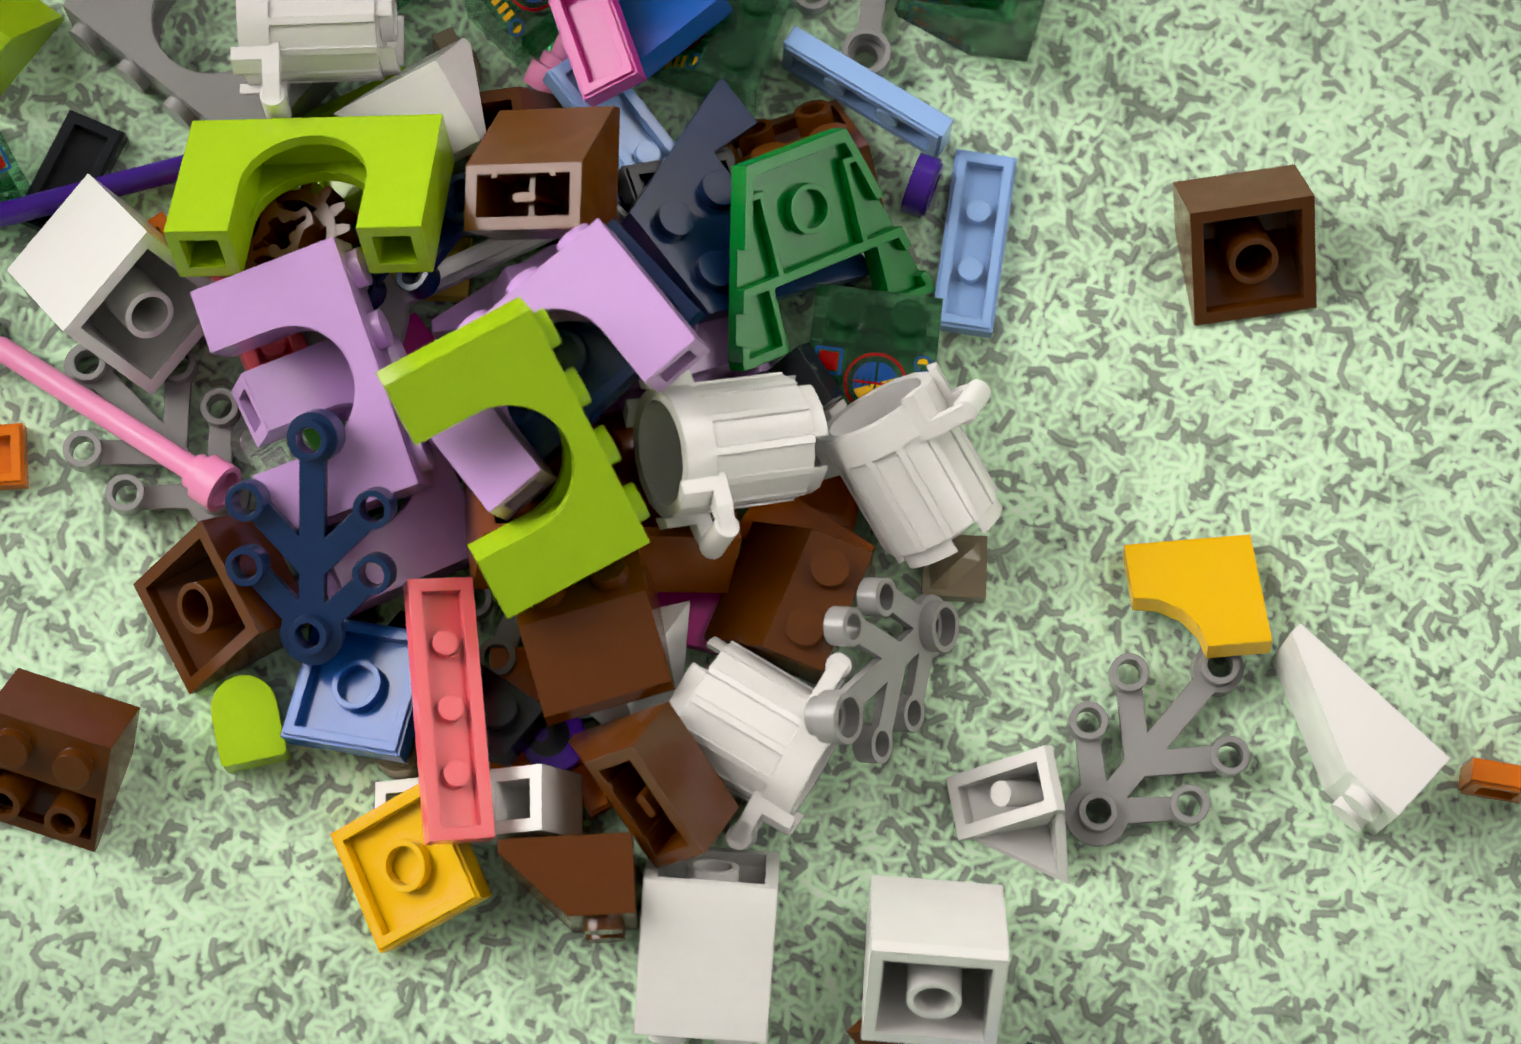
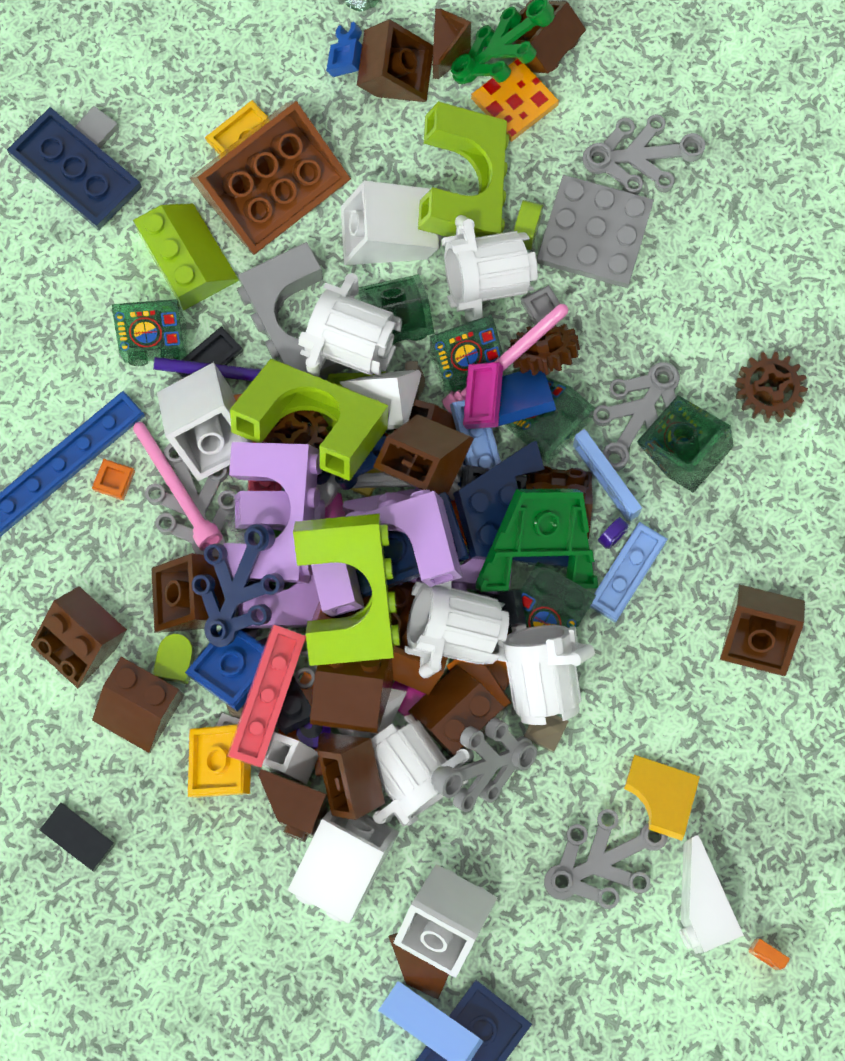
camera: 30 degrees right, 0 degrees up
(215, 831) = (136, 704): none -> reddish brown slope
(1015, 809) = (521, 862): white slope -> none

